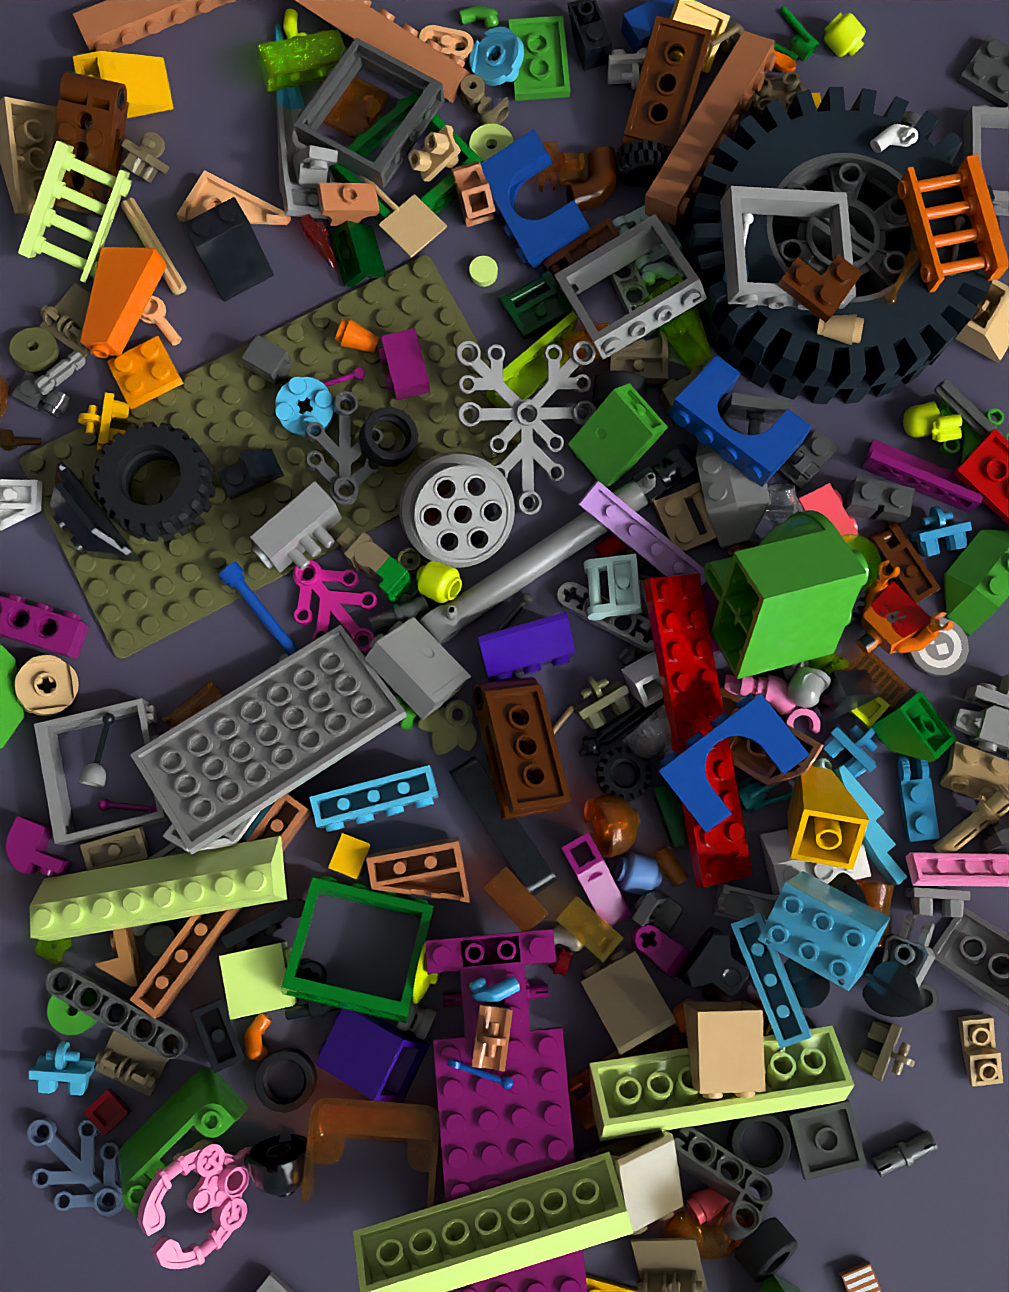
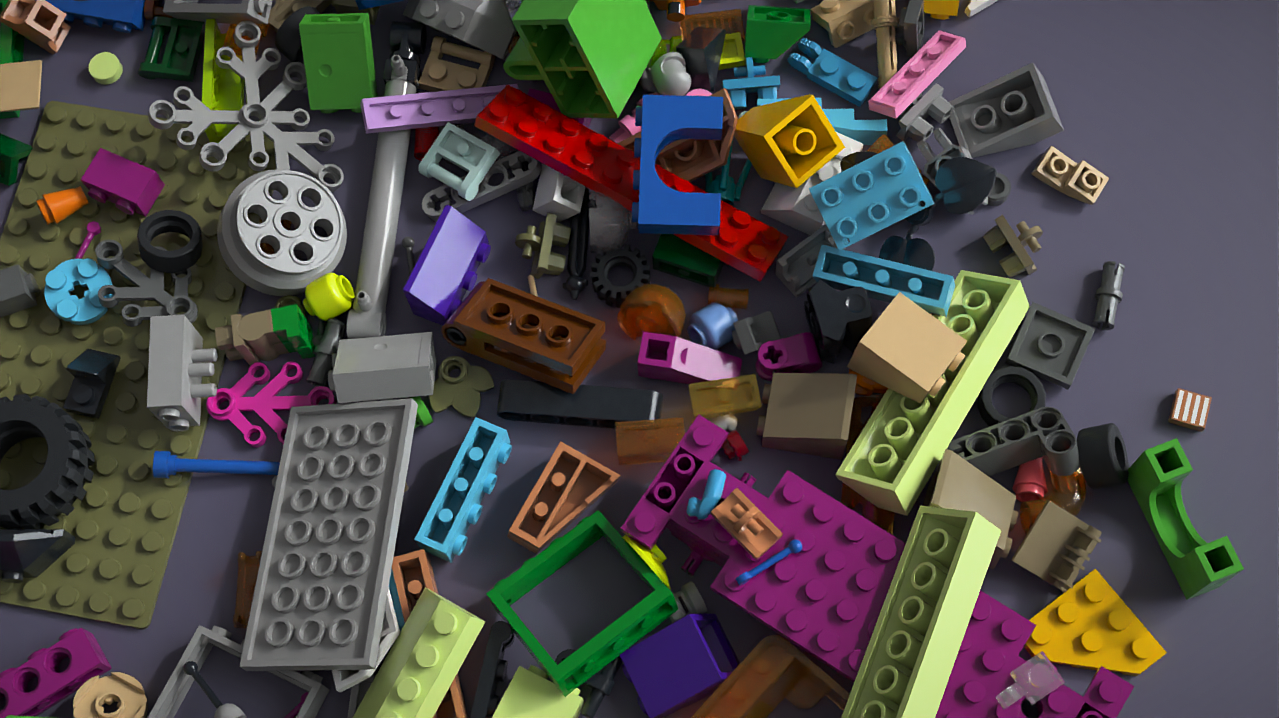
camera: 45 degrees left, 10 degrees down
(349, 856) = (496, 552): yellow panel -> none

